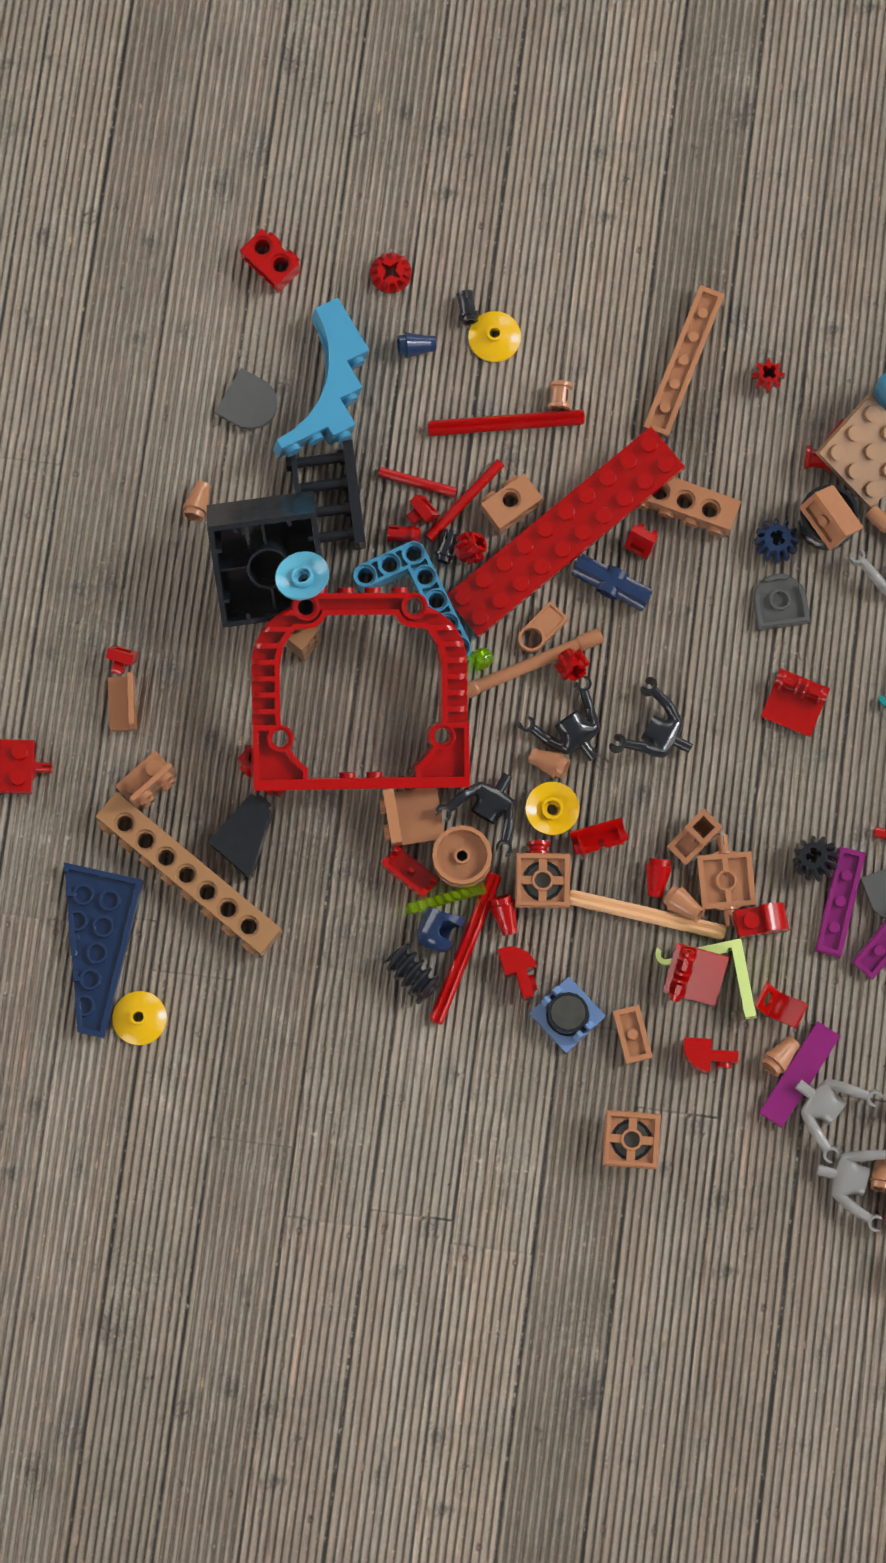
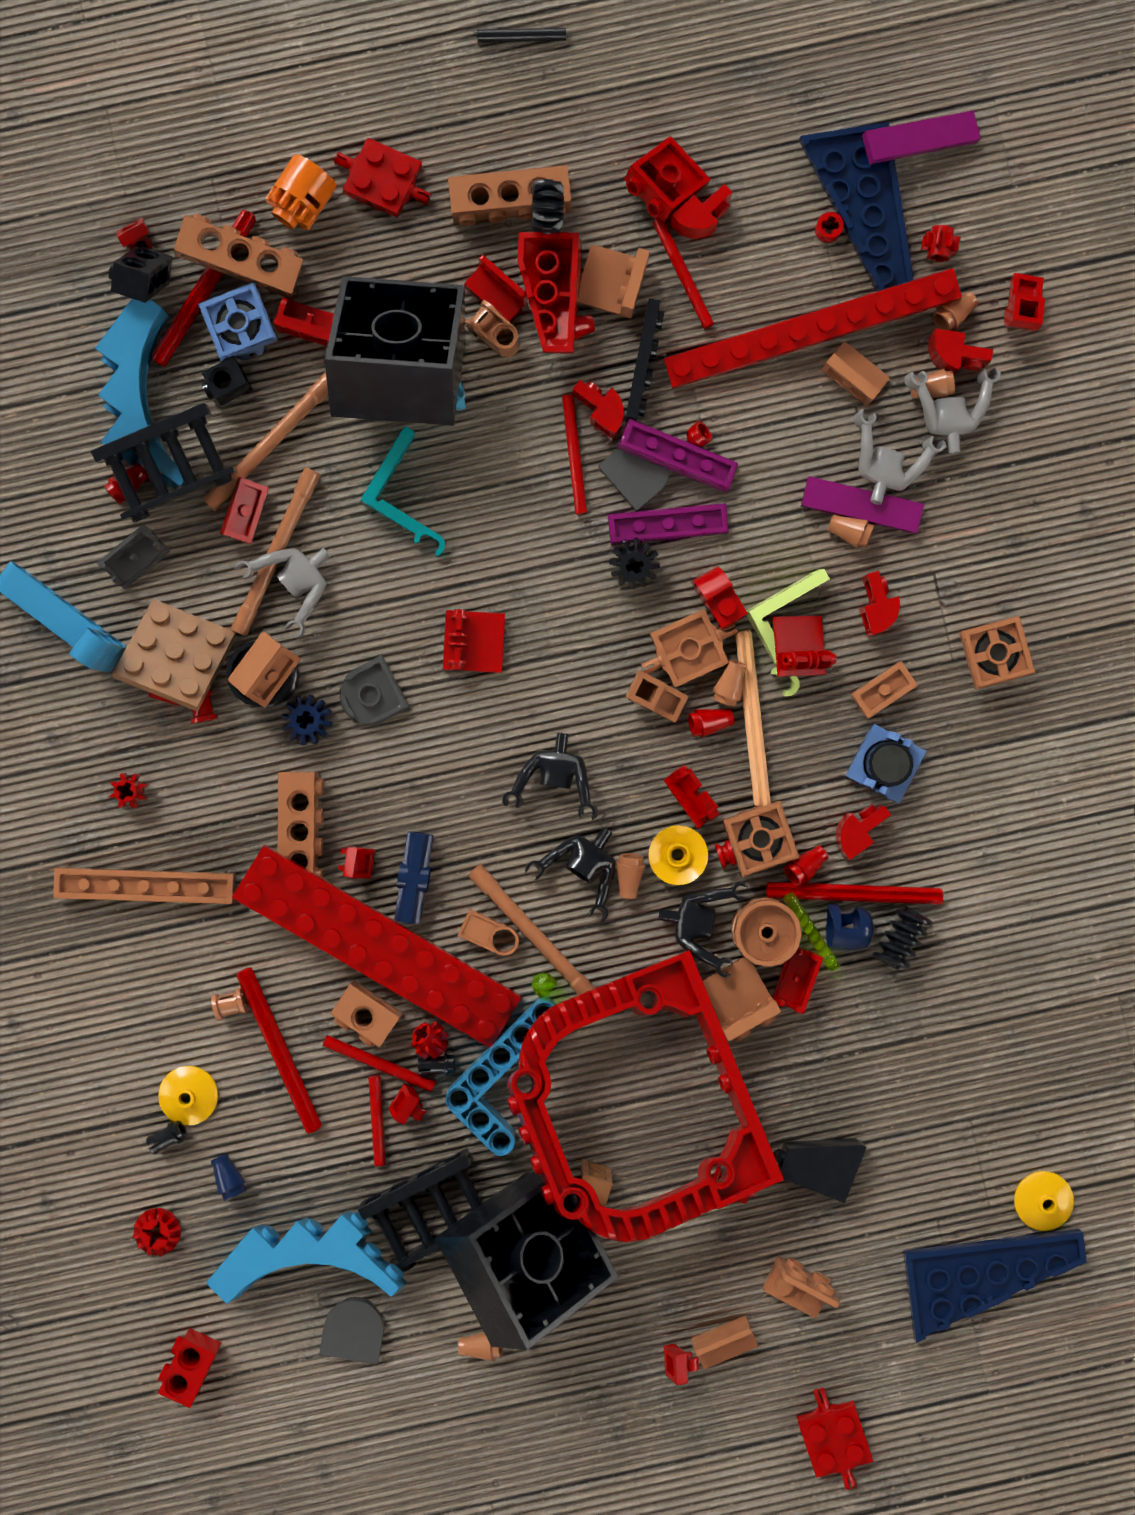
camera: 110 degrees left, 10 degrees up
(119, 809) = (909, 1106): medium nougat brick -> none
(299, 567) = (536, 1231): medium azure dish -> none
(403, 534) = (439, 1114): red pin -> none
(572, 664) = (518, 888): red gear -> none
(781, 1006) = (801, 546): red bracket -> none

